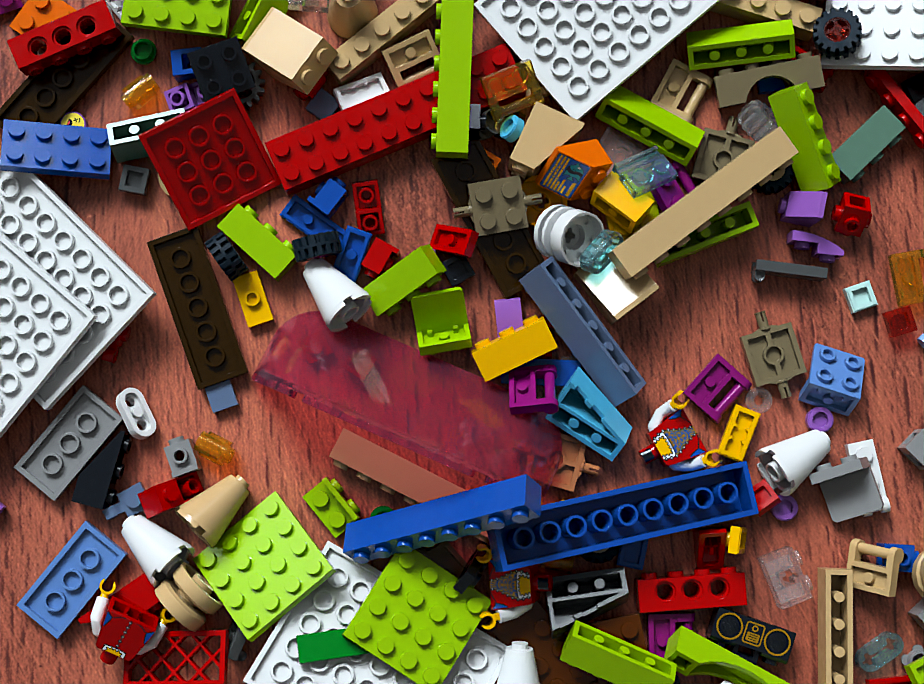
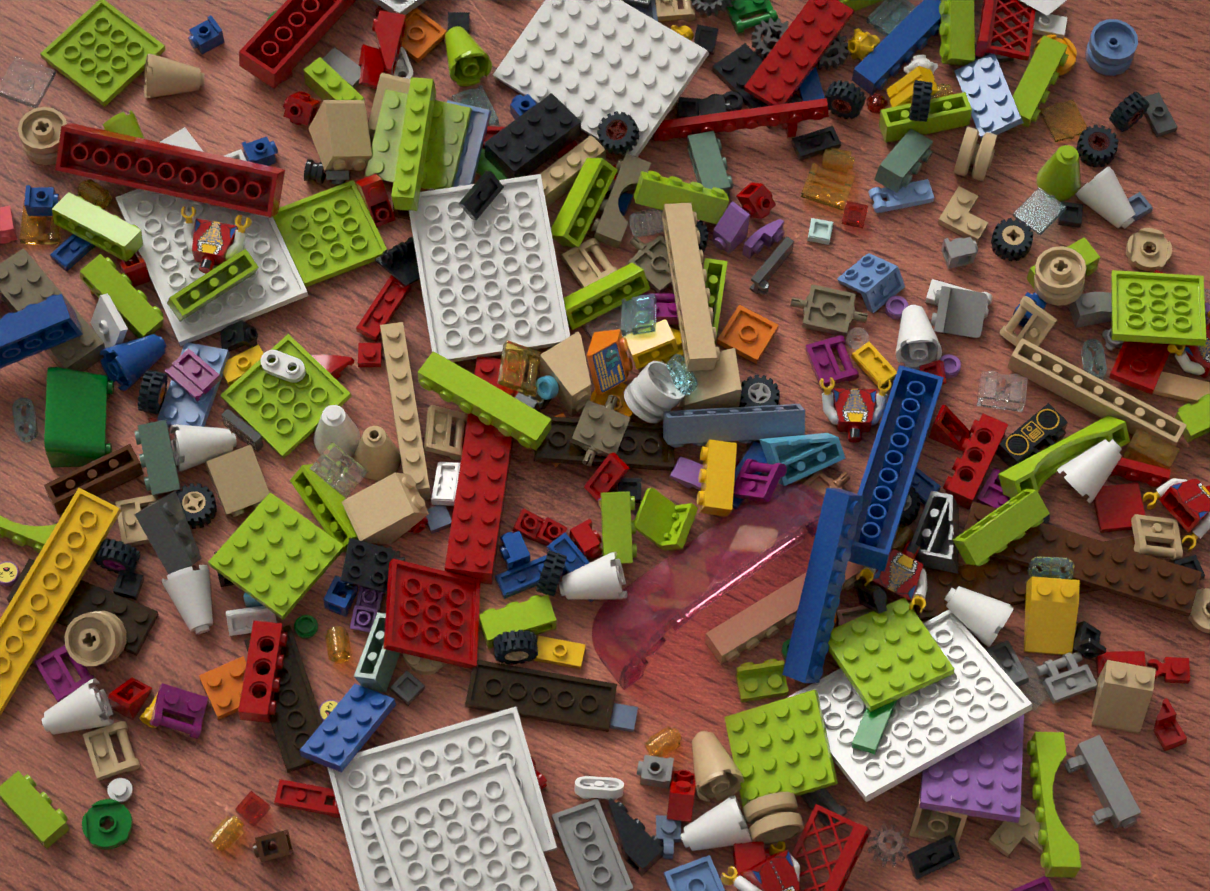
camera: 60 degrees left, 20 degrees down
(642, 335) = (759, 388): none -> black wheel
(697, 289) = (747, 334): none -> orange plate
(736, 540) = (955, 404): yellow plate -> none

